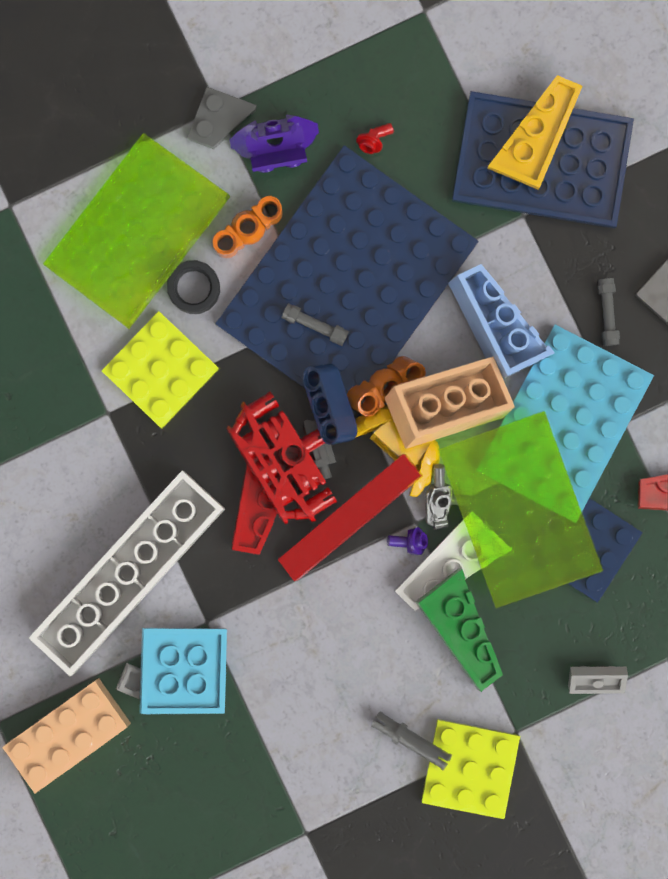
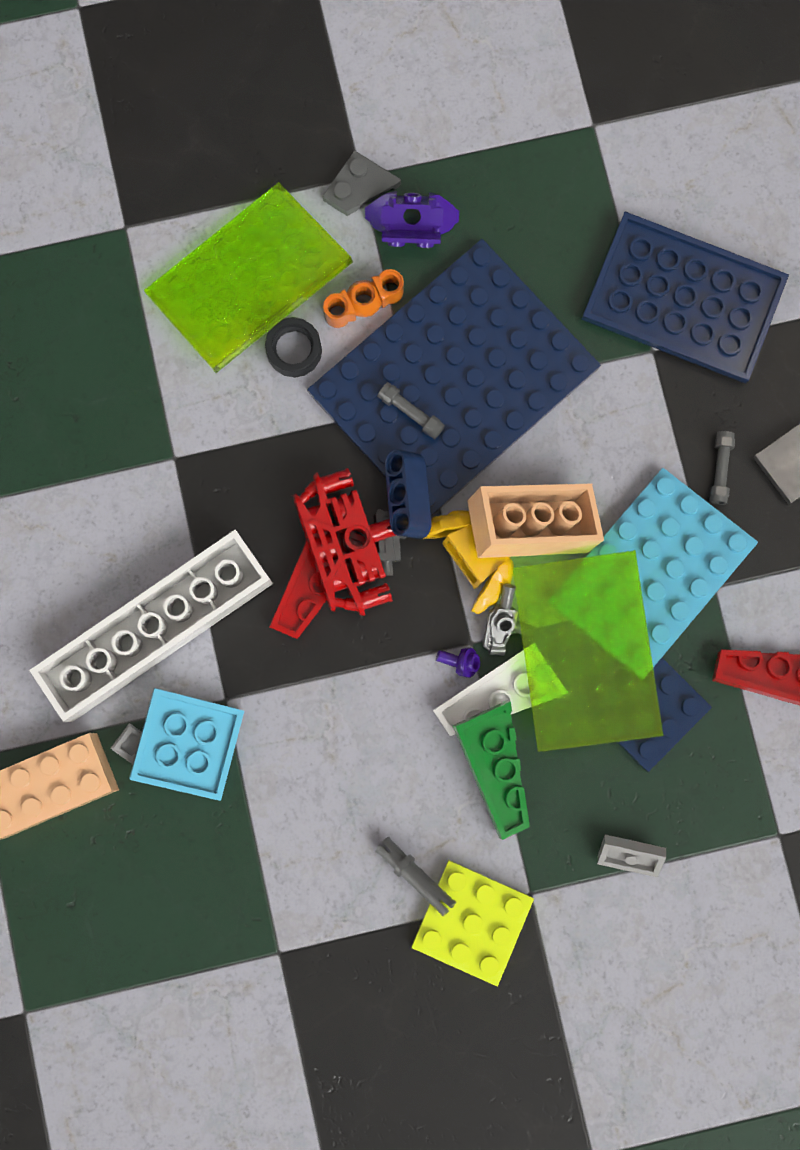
camera: 15 degrees right, 5 degrees down
(160, 369) = (239, 424): neon yellow plate -> none
(350, 517) = (403, 619): red tile -> none
(370, 141) = (510, 239): red plate -> none
(374, 388) = (458, 490): orange piece -> none
(497, 322) = (603, 450): light blue wedge -> none
(534, 142) = (680, 275): yellow wing -> none

